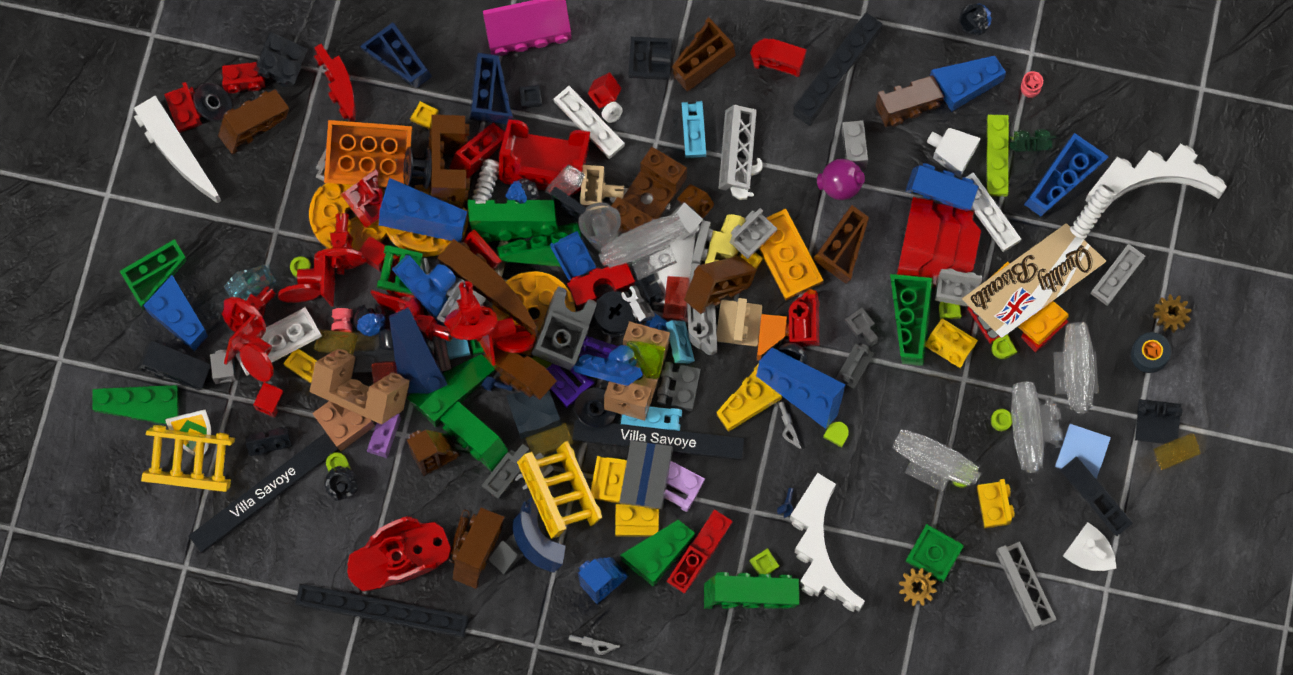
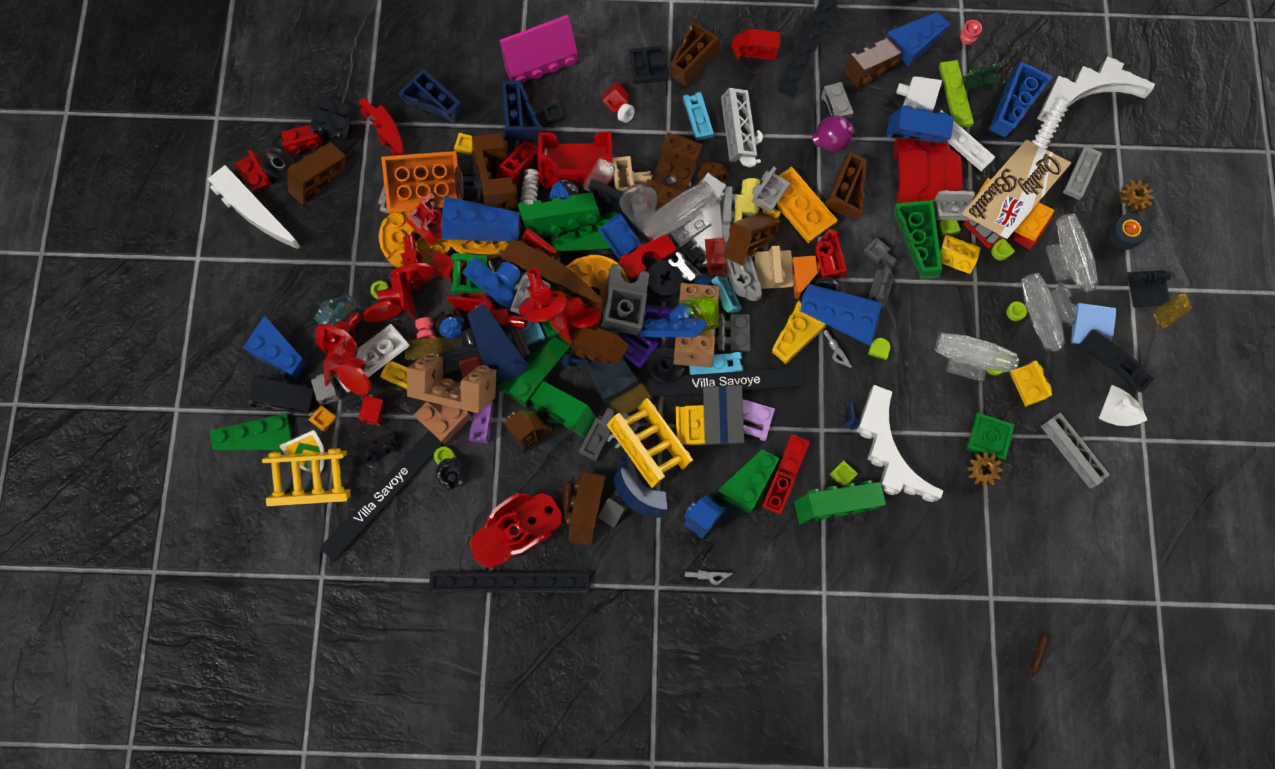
camera: 15 degrees left, 0 degrees up
(152, 271) = (245, 315): green wedge -> none
(214, 398) = (322, 418): none -> light orange tile
(589, 121) = (605, 122): white plate -> none
(636, 521) = (722, 458): yellow plate -> none

